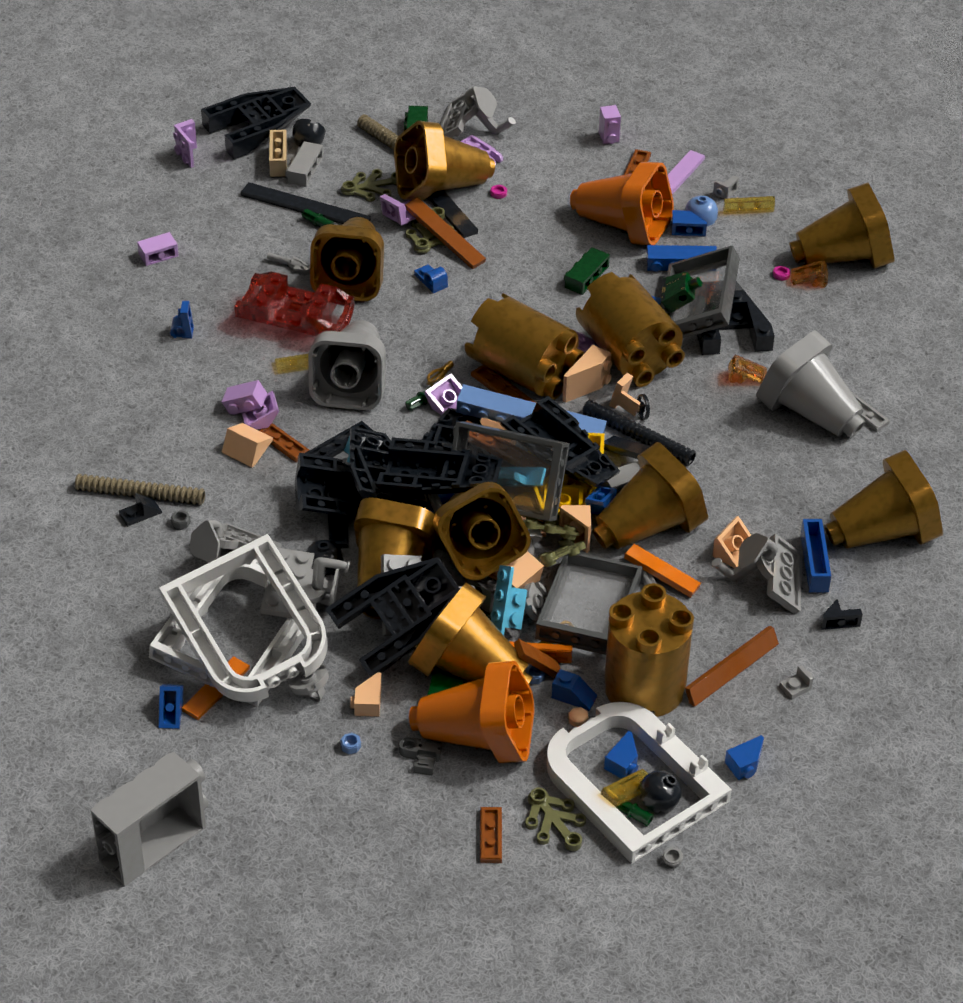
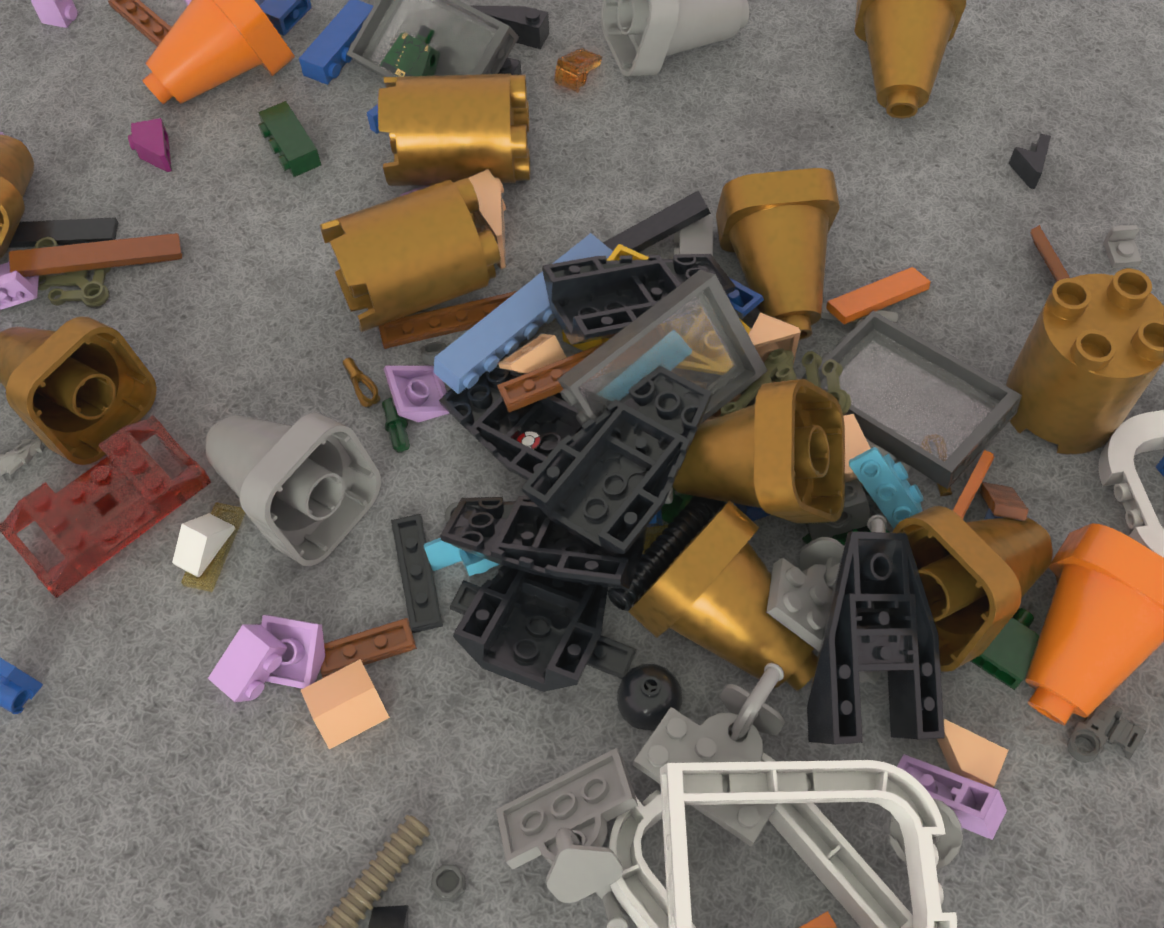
camera: 60 degrees left, 15 degrees up
(296, 352) = (200, 542): none -> white slope
(340, 696) = (975, 804): none -> lavender slope
(350, 743) = (1051, 825): medium blue tile -> none
(433, 279) = (173, 309): blue plate -> none
(498, 191) = (60, 166): dark pink tile -> none
(540, 218) = (151, 143): none -> magenta slope
(572, 690) = (1051, 489): blue slope -> none
(578, 716) = (1096, 502): light nougat tile -> none
(626, 401) = (547, 200): light nougat piece -> none
(638, 431) = (614, 214): black piece -> none
(729, 541) = (864, 206): light nougat slope -> none
(778, 564) = (937, 184): light grey plate -> none
(815, 555) = (929, 136): blue brick -> none

